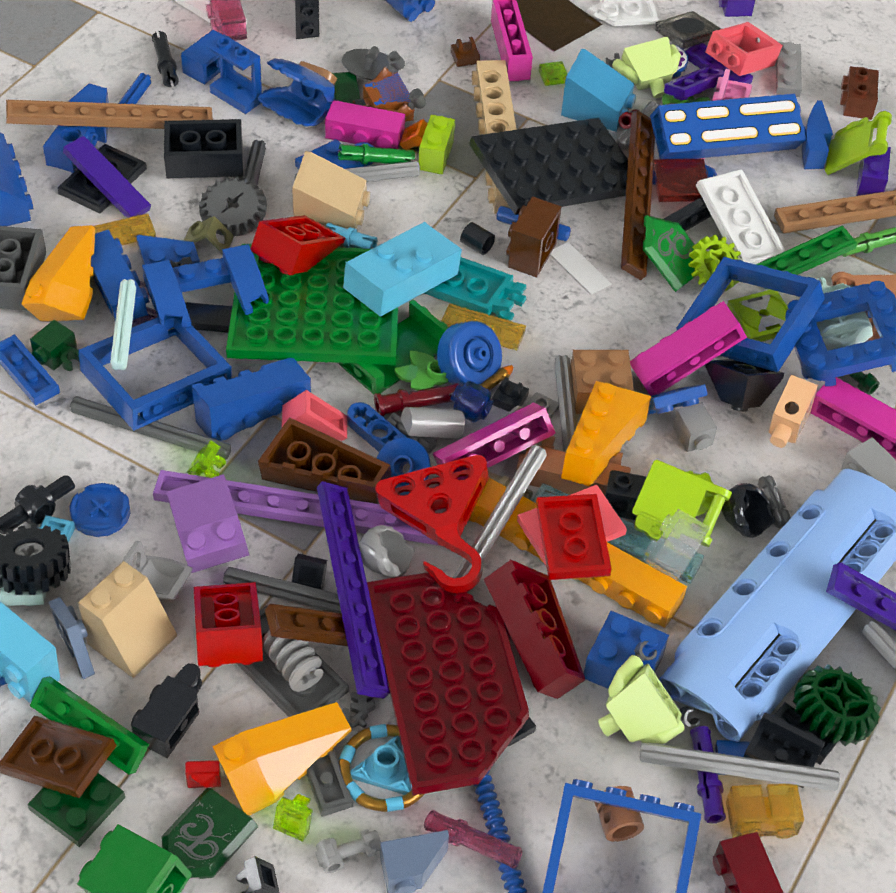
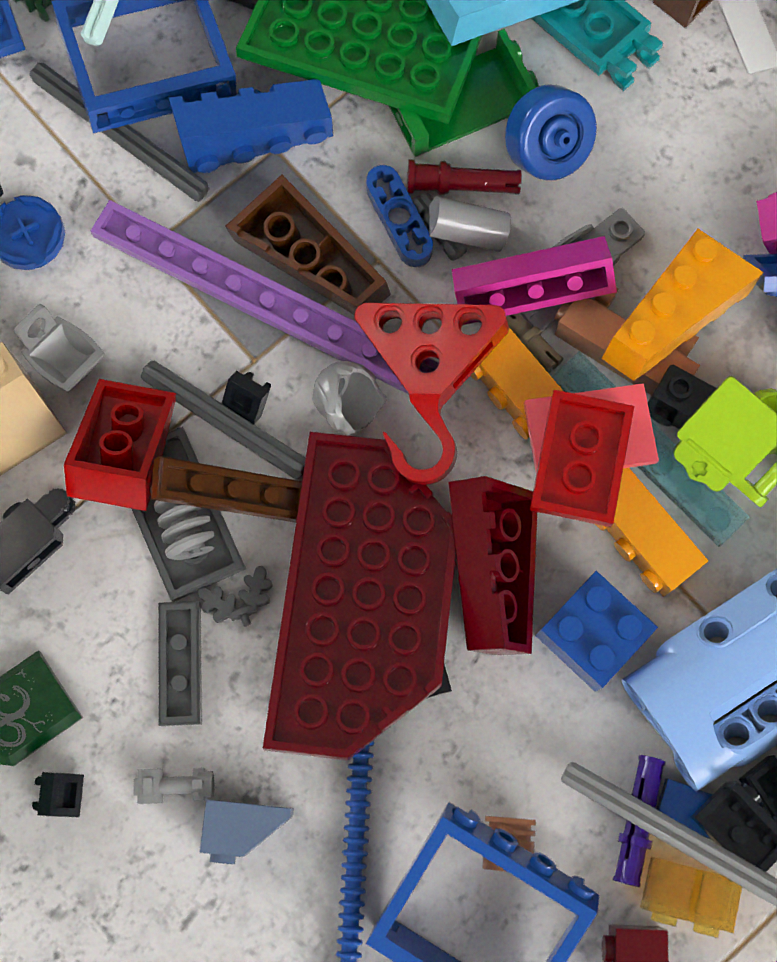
camera: 20 degrees right, 25 degrees up
(203, 774) = (35, 638): red tile -> none
(205, 459) = (167, 199): clear neon green tile -> none
(207, 523) = (140, 293): medium lavender slope -> none
(274, 755) = (116, 643): light orange wedge -> none
(293, 817) = (123, 725): clear neon green tile -> none
(316, 414) = (322, 175): coral slope -> none
(353, 592) = (284, 443): dark purple tile -> none
(382, 769) = (245, 686): medium azure piece -> none
(402, 452) = (398, 265): blue dish -> none
(422, 372) = (480, 139): bright green plate -> none
(472, 401) = (530, 204): clear blue head -> none
(474, 839) = (290, 786): clear pink pin -> none
(496, 378) = (562, 180): pearl gold piece -> none
(505, 506) = (507, 388): light grey axle -> none
(508, 332) = (610, 103): clear yellow tile -> none
(510, 395) = (584, 204): black tile -> none
(565, 399) = (654, 235): light grey axle -> none
(600, 366) = (715, 205): medium nougat brick -> none
(642, 704) = (589, 712): yellowish green torso -> none
(677, 544) = (714, 504): clear brick -> none

